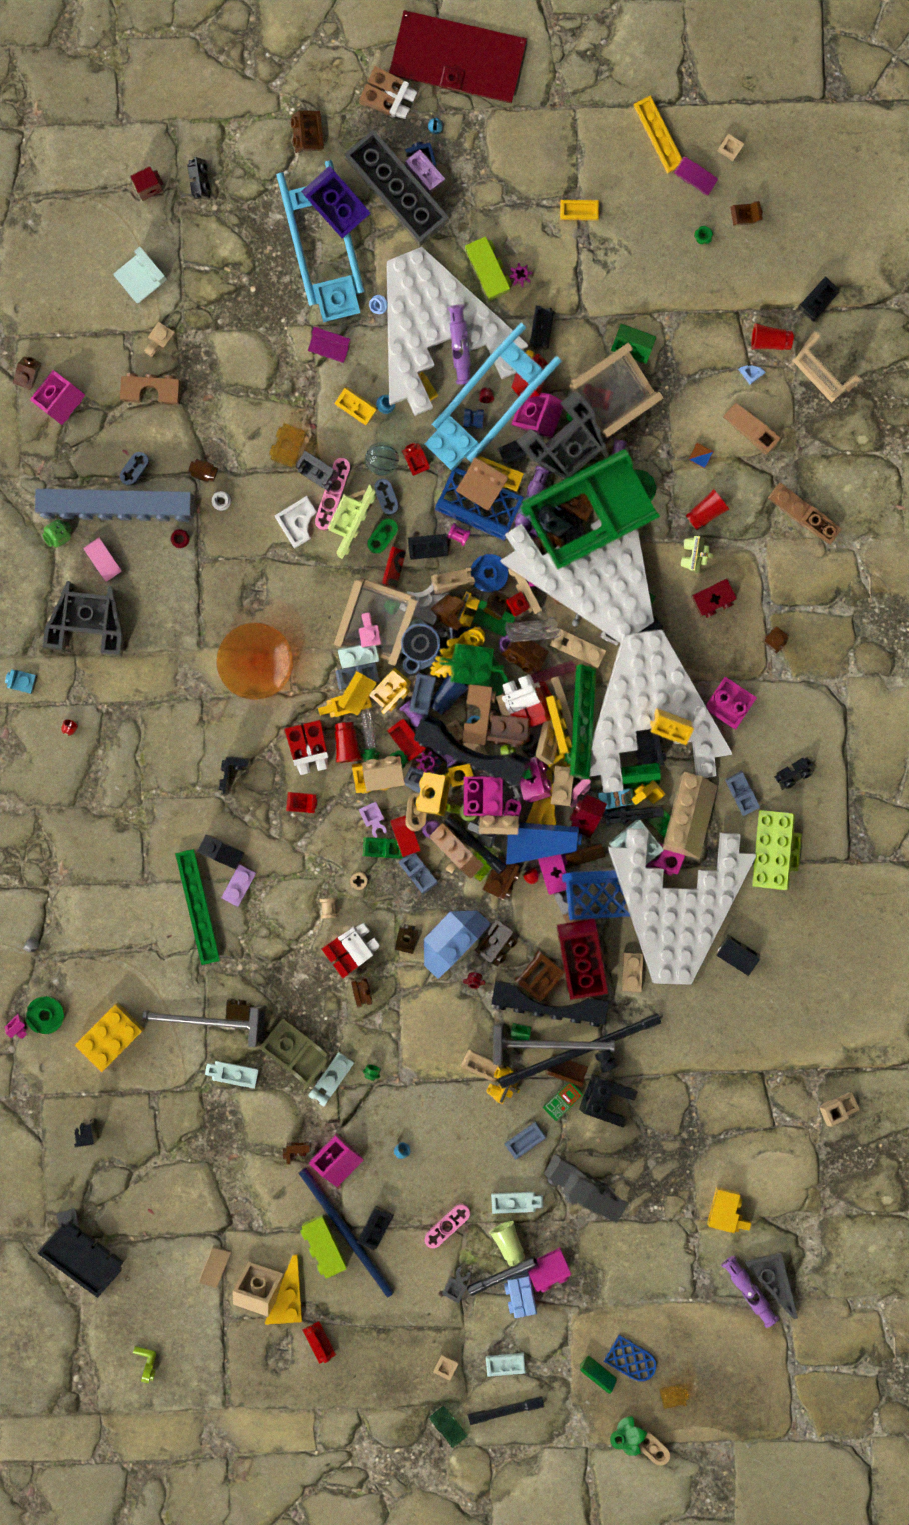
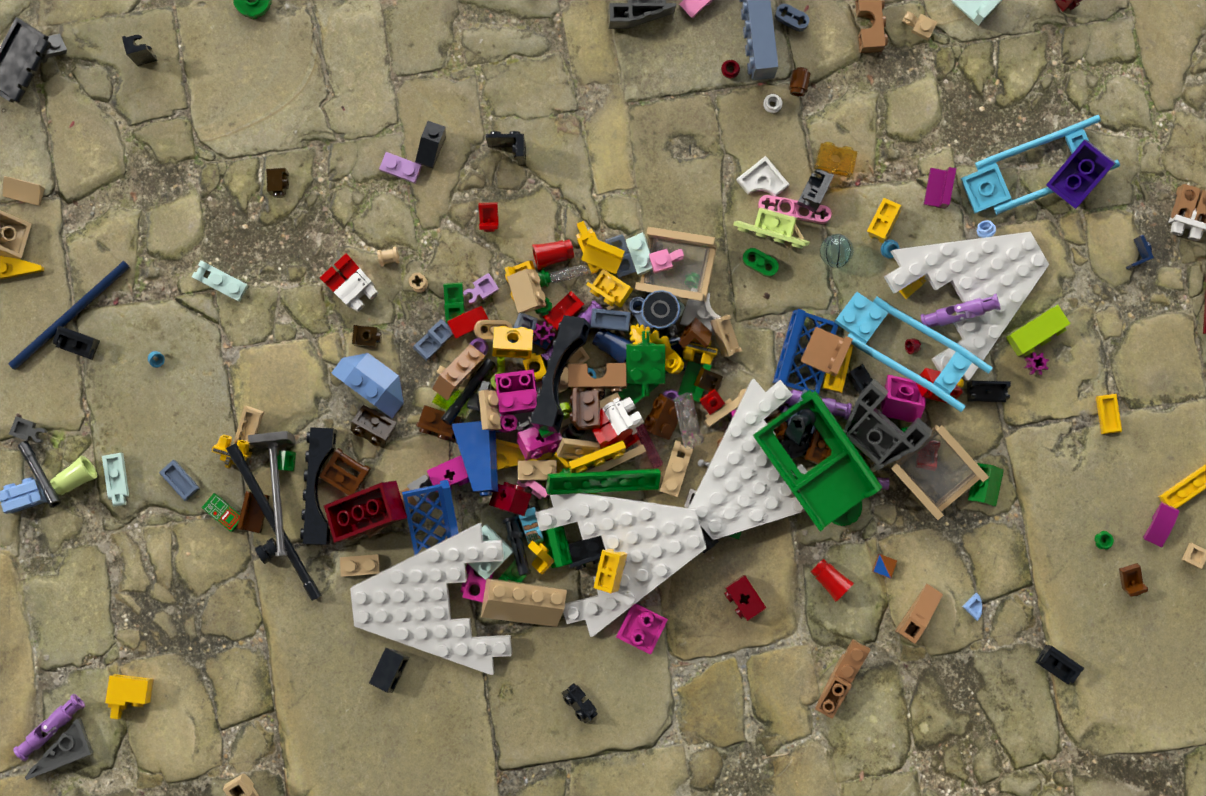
camera: 75 degrees right, 5 degrees down
(109, 1037) = (236, 61): yellow piece -> none
(197, 907) = (374, 130): green plate -> none
(198, 169) = (1088, 42): black hinge -> none
(232, 1074) = (214, 184): light aqua hinge -> none
(254, 1025) = (262, 199): flat silver tile -> none
(255, 661) = (621, 153): clear orange dish -> none
(296, 1053) = (241, 243): olive bracket -> none
(298, 1148) = (147, 256): reddish brown bracket -> none
(305, 752) = (545, 214): red hips -> none
(307, 131) = (1143, 140): reddish brown bracket -> none
(323, 1246) = (52, 294): lime brick -> none
(336, 1160) = (138, 294): dark pink slope -> none
(362, 993) = (307, 299): reddish brown wheel -> none
(371, 1072) = (230, 319): green plate -> none
(381, 497) = (797, 258): sand blue beam -> none
(393, 567) = (731, 277): red slope -> none
(396, 187) = (1103, 231): dark grey brick -> none
(415, 458) = (840, 284): red bracket -> none
(424, 171) = (1121, 256): lavender hinge -> none
(427, 546) = (756, 307): black hinge -> none
(439, 126) = (1167, 267): dark azure hinge -> none
(458, 534) = (772, 336): dark pink bush -> none
(460, 1219) = (79, 400): bright pink beam -> none
(474, 980) = (332, 408): dark red plate -> none
(477, 421) = (889, 339): dark blue wheel -> none
(487, 562) = (734, 361): blue plate -> none
(531, 876) = (443, 451): red hinge -> none
(551, 1269) = (50, 523): dark pink slope -> none
(584, 1189) = (131, 545): dark grey wedge -> none
(585, 855) = (471, 502): reddish brown slope -> none
(598, 1096) = (228, 546): black brick -> none
(698, 554) = (786, 577): yellowish green hips -> none
(742, 793) = (552, 652): sand blue slope -> none
(771, 338) = (1012, 621): red plant -> none
(776, 639) = (711, 666): reddish brown brick -> none
(776, 850) = (499, 694): lime bracket -> none
(819, 373) = (985, 677): tan piece -> none

